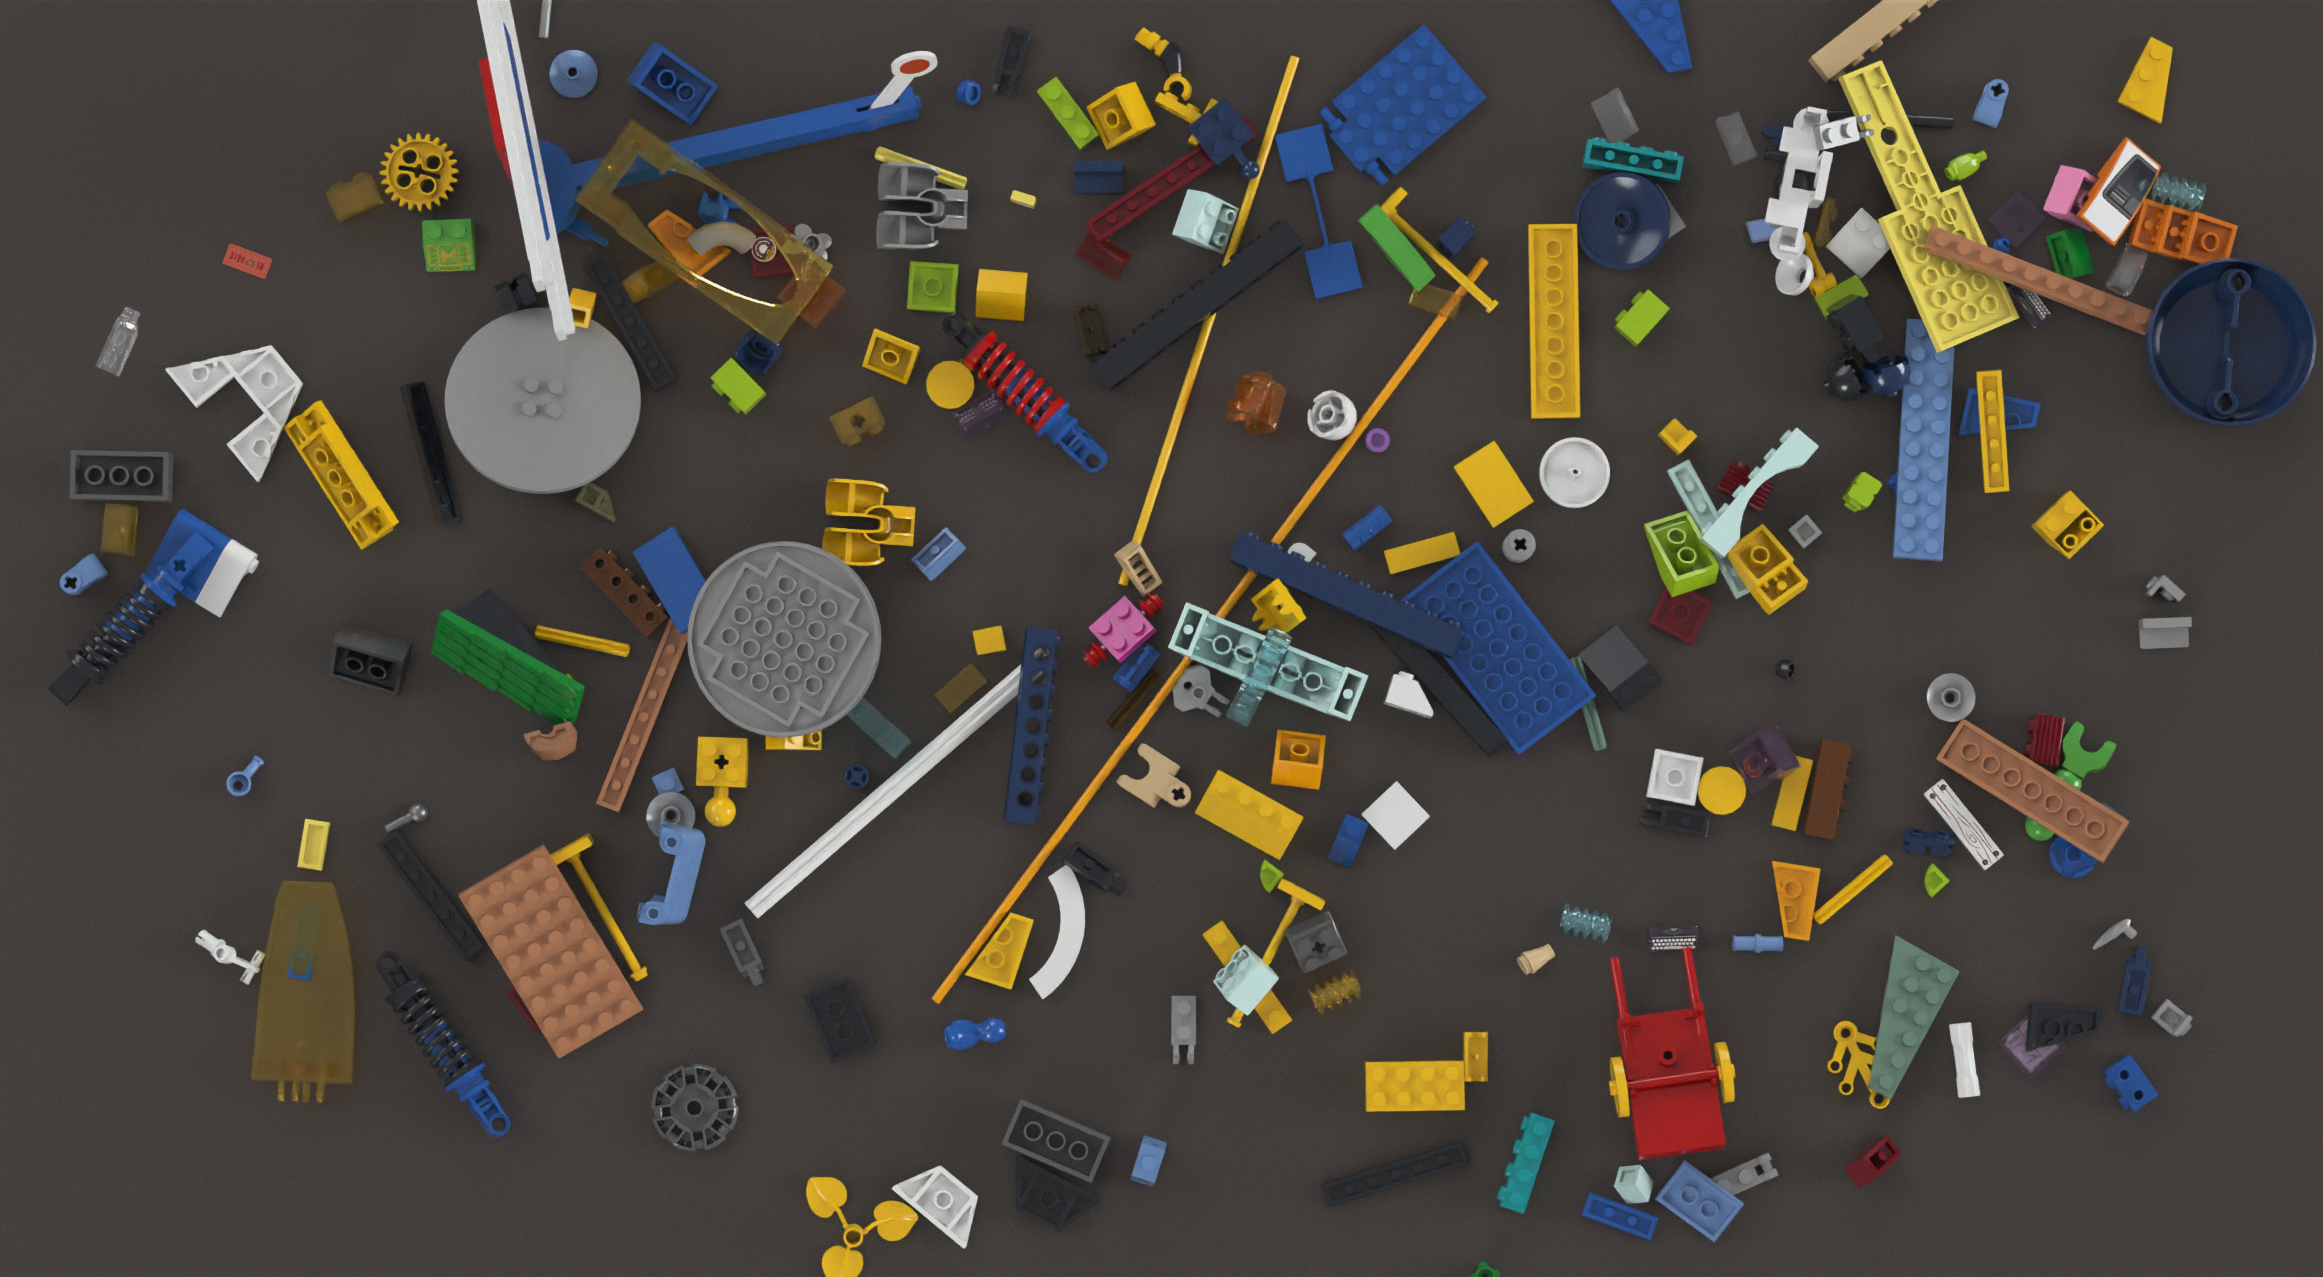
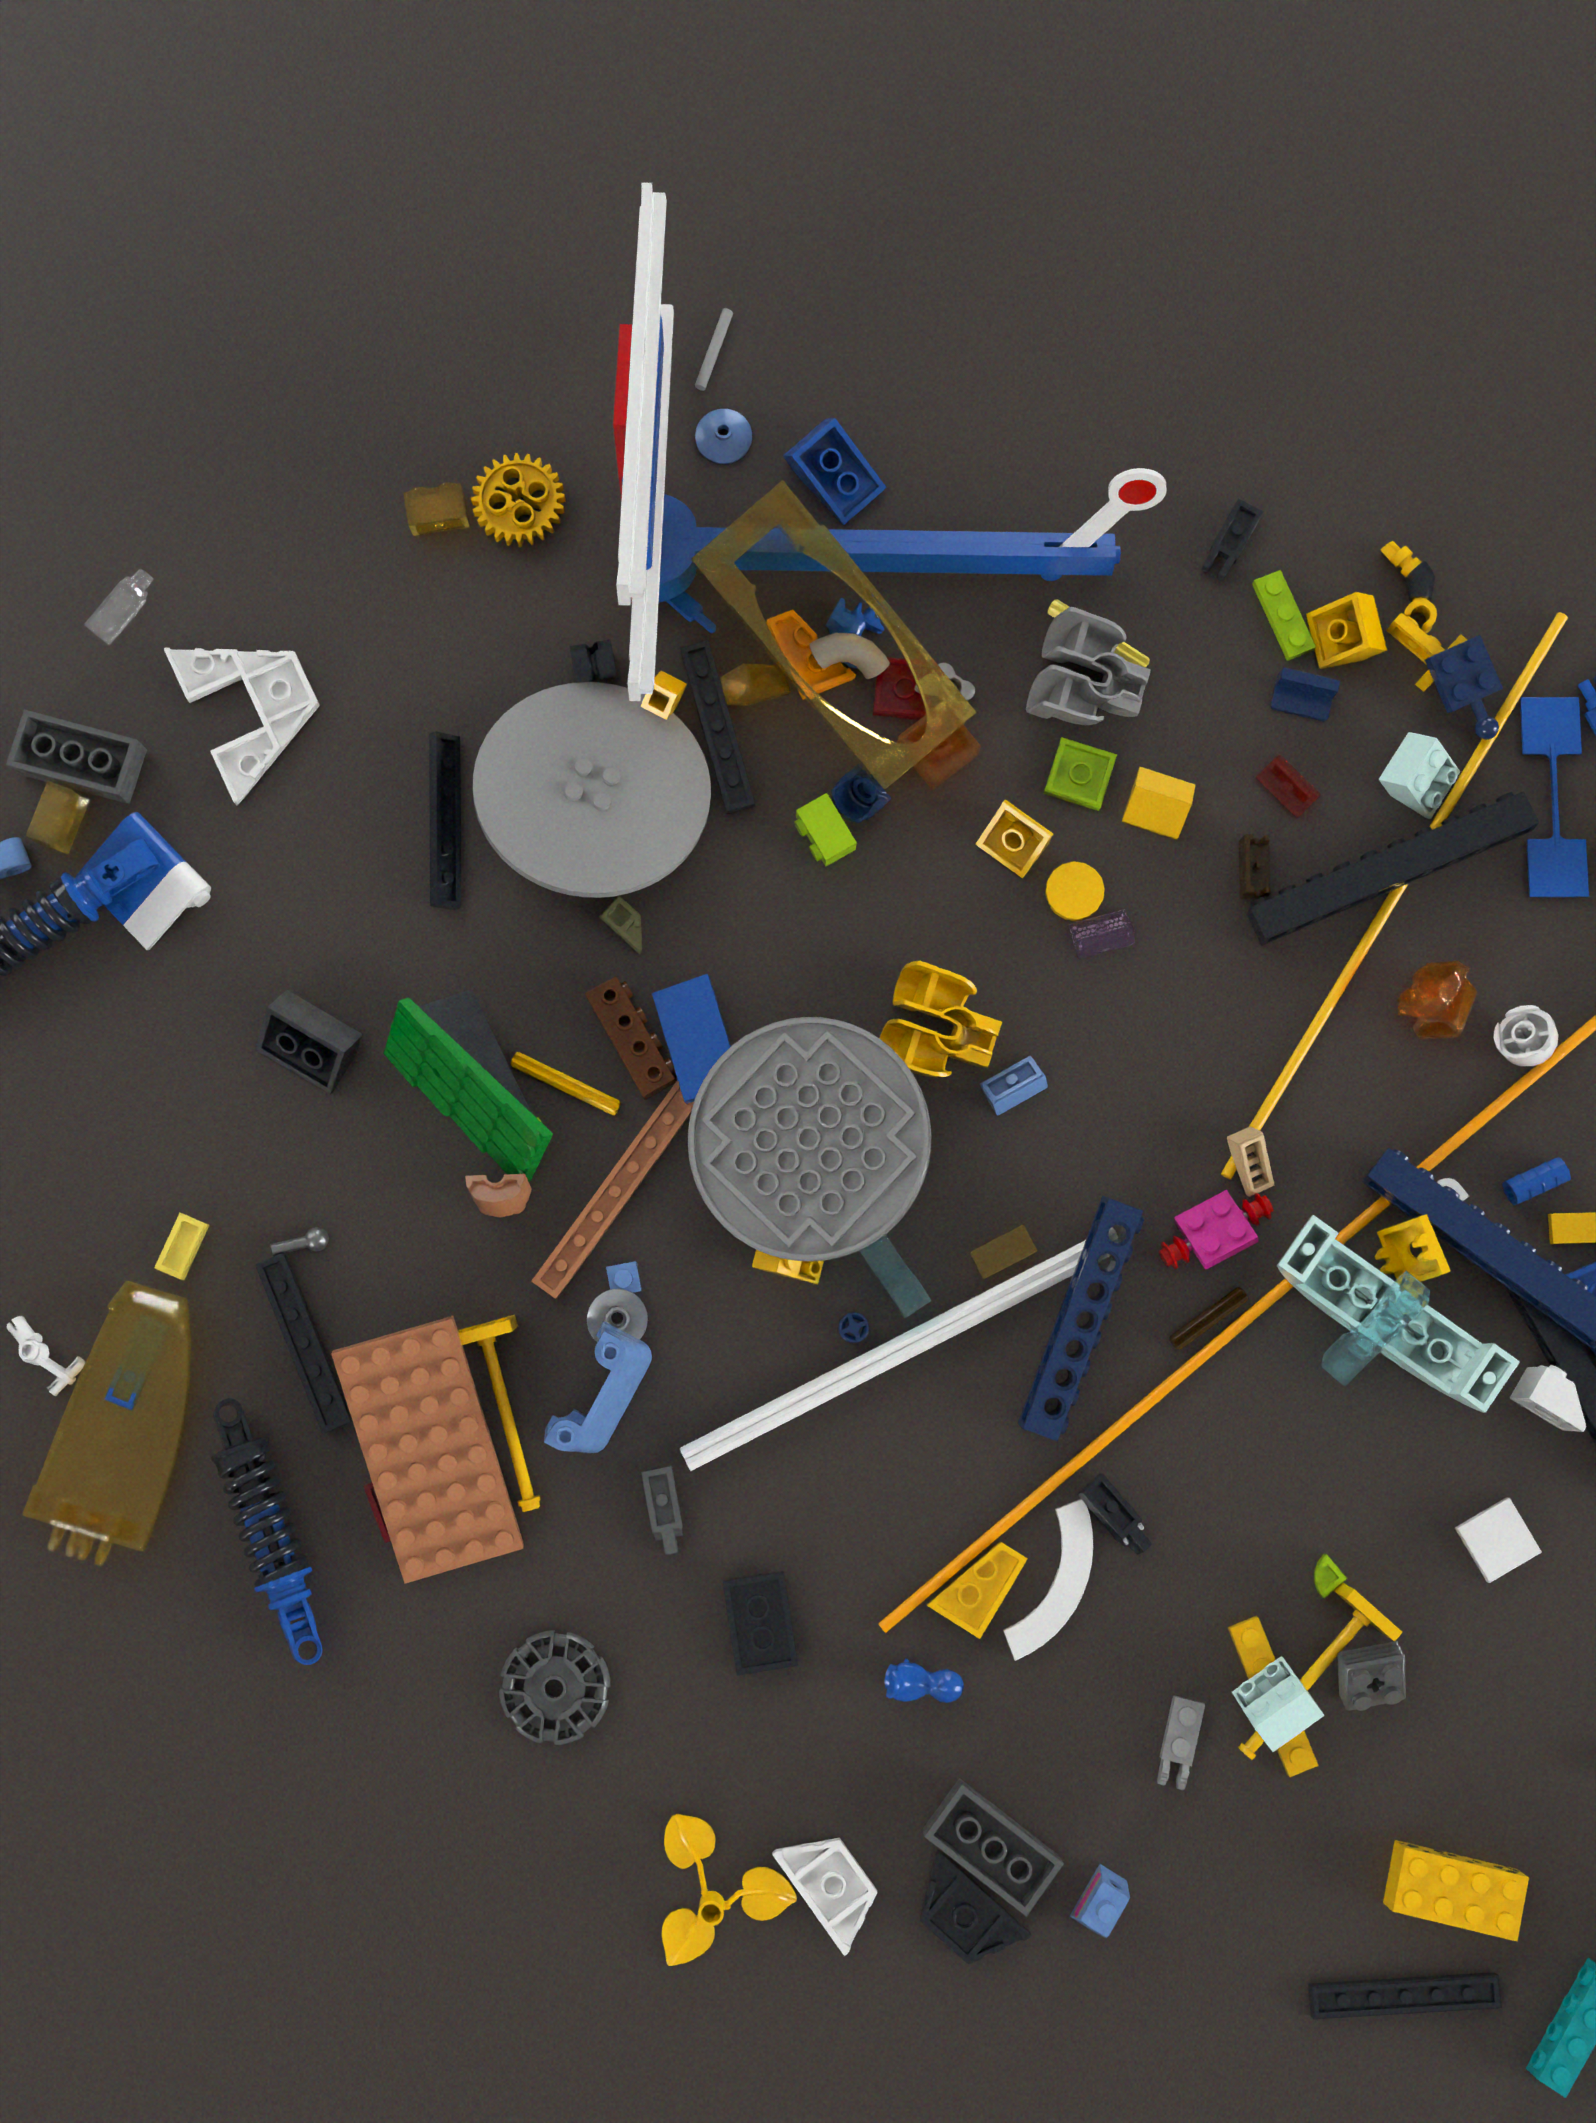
camera: 15 degrees right, 5 degrees down
(243, 778) = (119, 1145): medium blue bar -> none
(247, 261) = (294, 553): clear red sticker -> none
(341, 475) = (334, 819): yellow slope -> none
(449, 245) = (530, 588): bright green slope -> none
(721, 809) = (679, 1326): yellow brick -> none
(764, 249) = (894, 681): tile -> none
(845, 419) = (967, 894): clear yellow brick -> none
(968, 92) = (1174, 563): blue tile -> none
(989, 640) = (1053, 1202): yellow panel -> none
(1023, 199) = (1211, 698): light yellow tile -> none
(1043, 413) = (1162, 916): piece -> none
(1136, 666) = (1221, 1279): blue hinge -> none
(1153, 192) = (1364, 726): dark red plate -> none
(1159, 781) = (1219, 1425): tan piece -> none
(1198, 693) = (1292, 1328): light grey hinge -> none
(1249, 815) = (1321, 1494): yellow slope -> none
(1298, 759) = (1395, 1442): light orange slope -> none
(1335, 992) = (1381, 1743): clear yellow piece -> none
(1348, 840) = (1433, 1556): blue slope -> none
(1377, 440) = (1568, 1080): medium lavender tile -> none
(1475, 1056) = (1537, 1864): yellow hinge -> none

